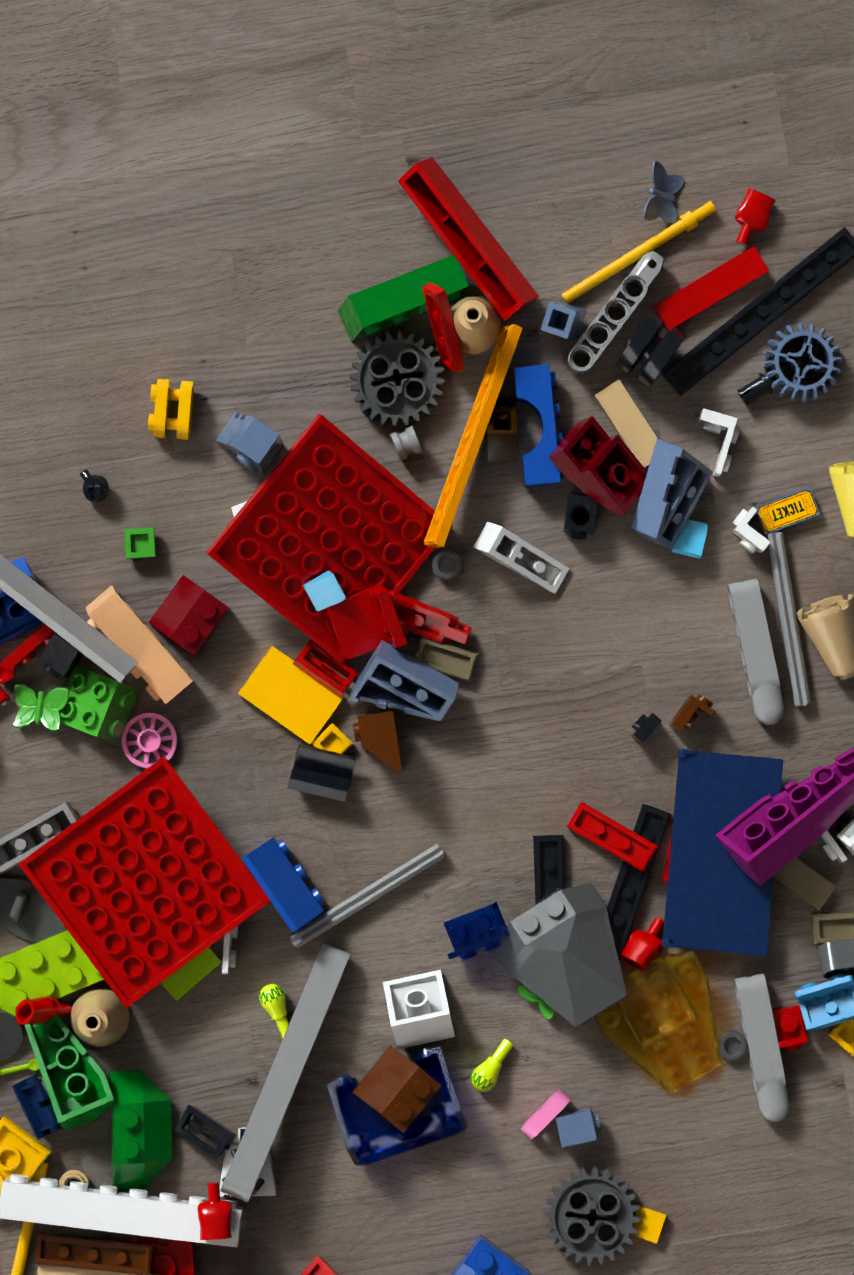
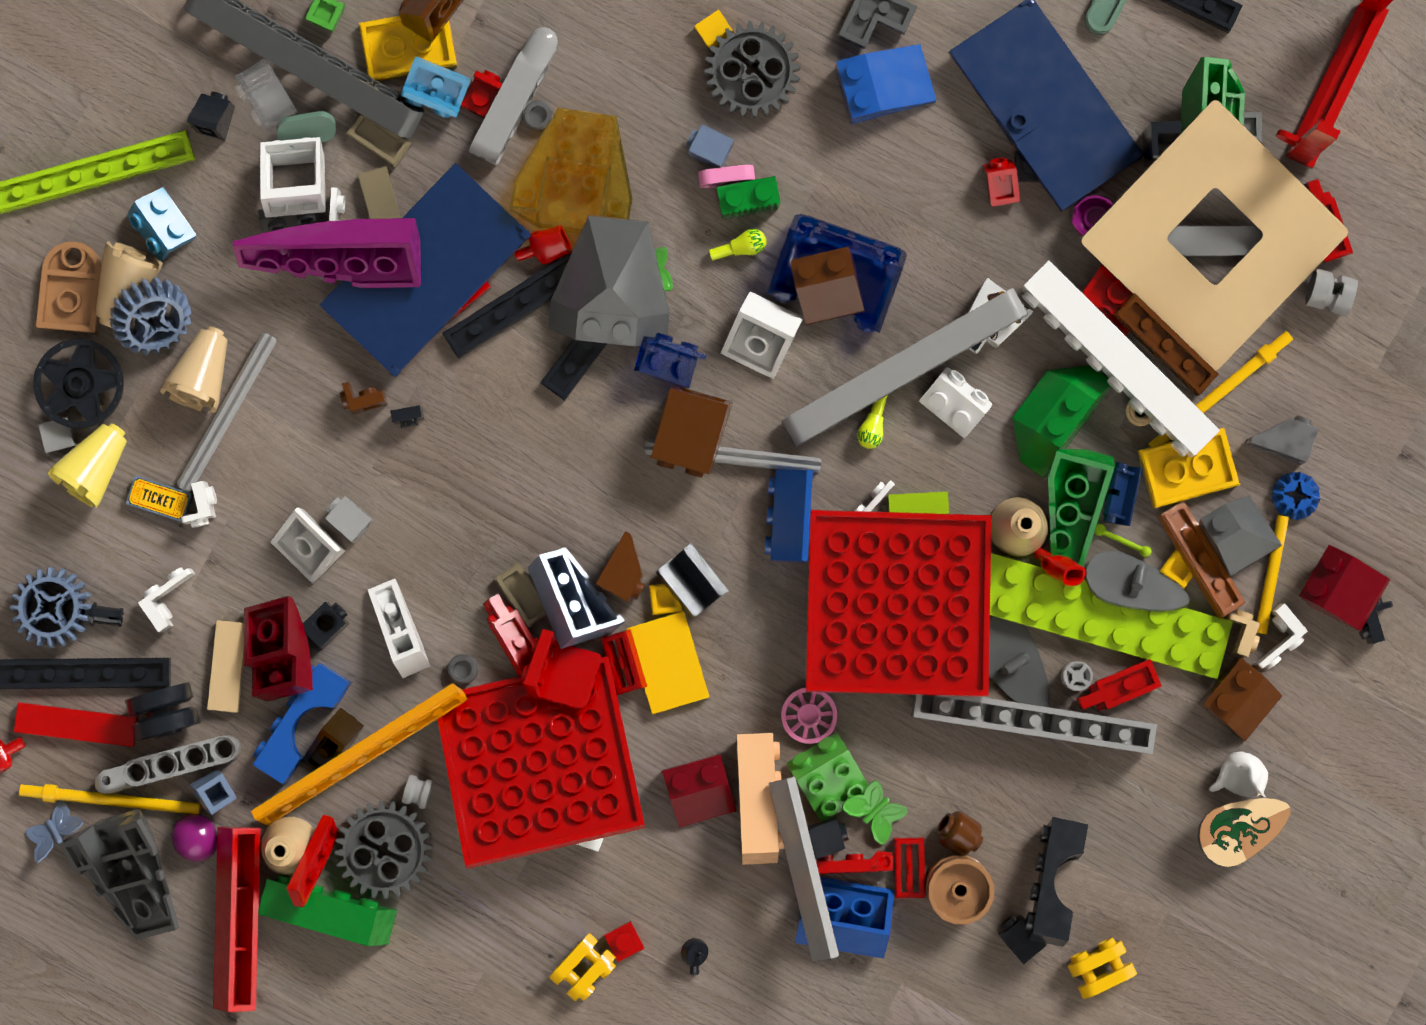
camera: 145 degrees left, 0 degrees up
(140, 543) = (693, 879): bright green plate -> none
(156, 454) = (624, 941): none -> red plate
(215, 1215) = (1046, 297): red piece -> none
(222, 1143) = (997, 350): black tile -> none
(224, 1077) = (956, 402): none -> white bracket
(251, 442) = (540, 891): sand blue wedge -> none
(324, 591) = (575, 722): medium azure slope -> none
(414, 889) = (691, 430): none -> reddish brown slope
(514, 1110) = (748, 197): none -> green brick
(550, 274) = (194, 838): none -> magenta hair
(583, 210) = (127, 869): none -> dark grey wedge
(612, 836) = (502, 350): red tile -> none
(627, 611) = (348, 518): none -> light grey brick
(643, 566) = (307, 545): none -> white slope
(669, 493) = (240, 585): sand blue wedge -> none
(691, 539) = (252, 537): medium azure slope -> none
(756, 650) = (271, 407): light grey piece -> none

